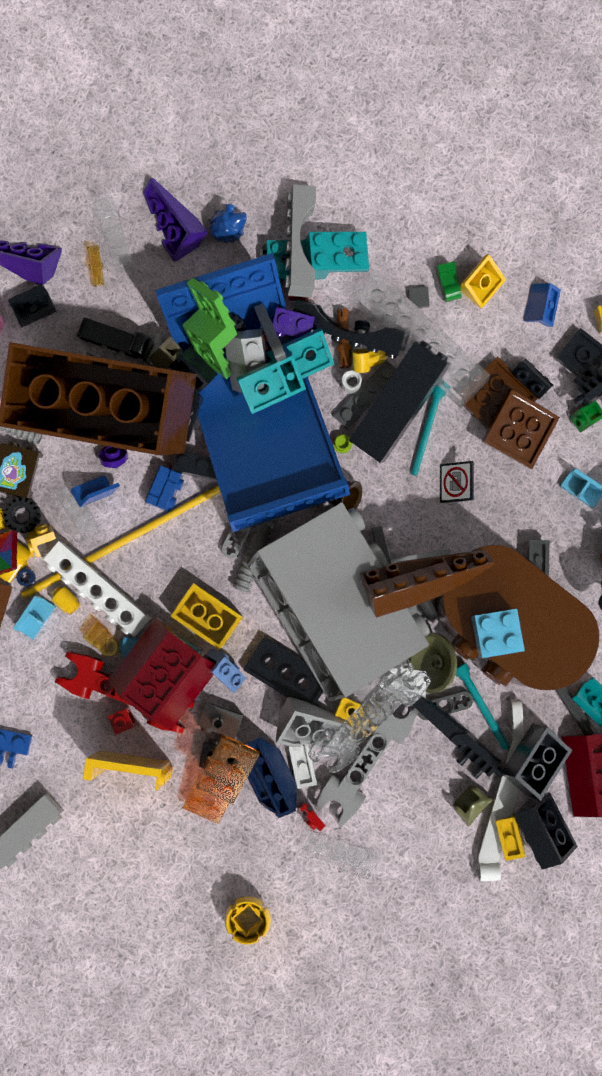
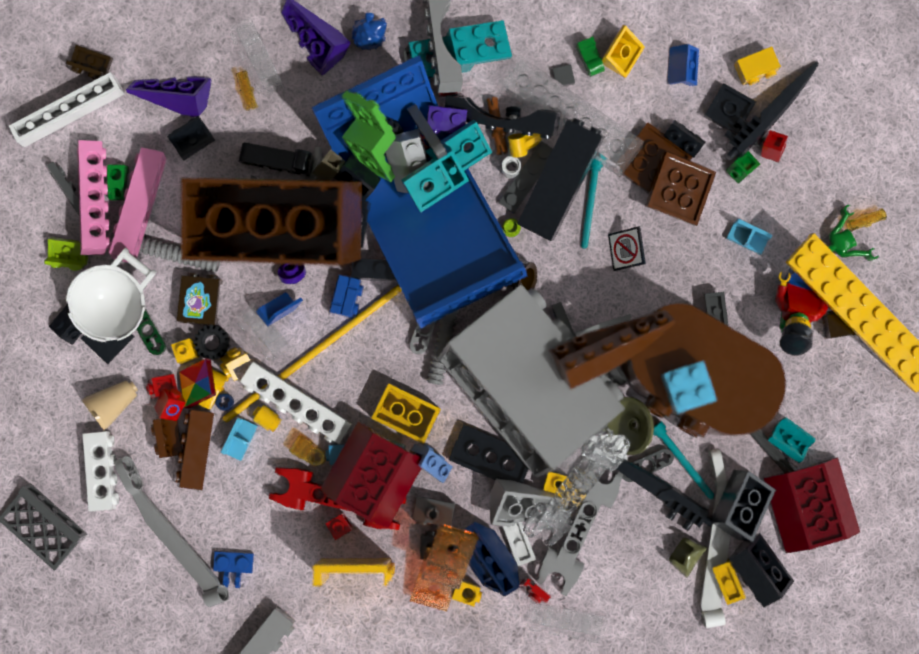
camera: 10 degrees left, 0 degrees up
(244, 817) = (458, 596): none -> yellow brick

